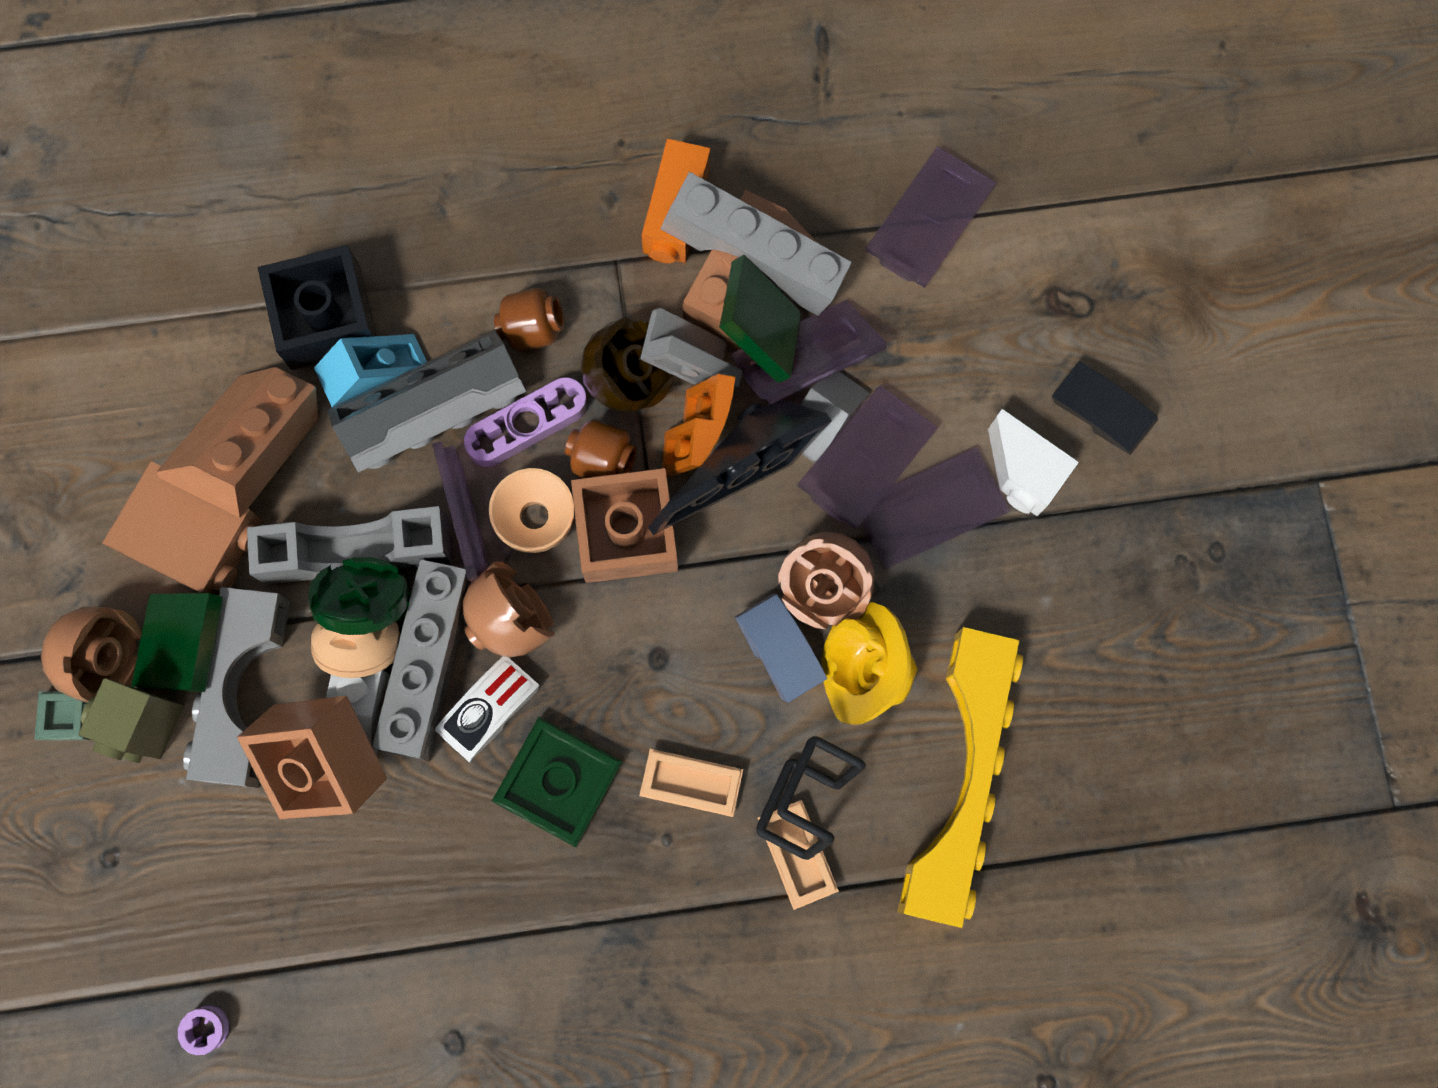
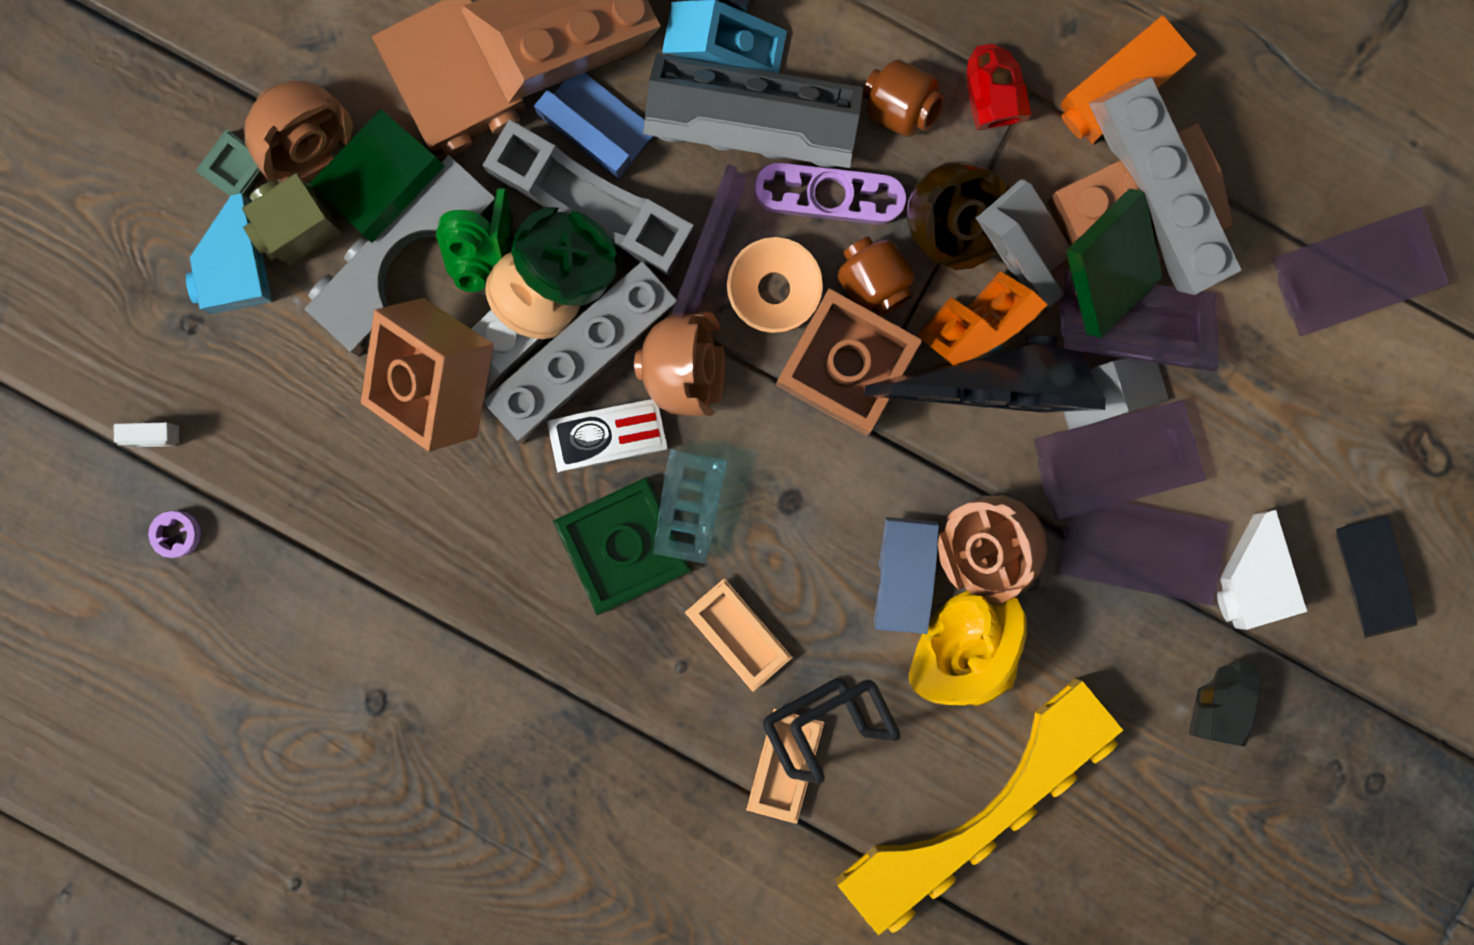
camera: 35 degrees right, 10 degrees up
(106, 791) = (226, 265): none -> medium azure slope
(127, 968) = (146, 434): none -> white tile
(283, 638) = (472, 246): none -> green bracket
(318, 493) = (595, 123): none -> medium blue panel
(585, 674) = (707, 509): none -> clear light blue slope
(591, 270) = (996, 88): none -> red rock
(1076, 570) = (1227, 704): none -> pearl dark grey rock

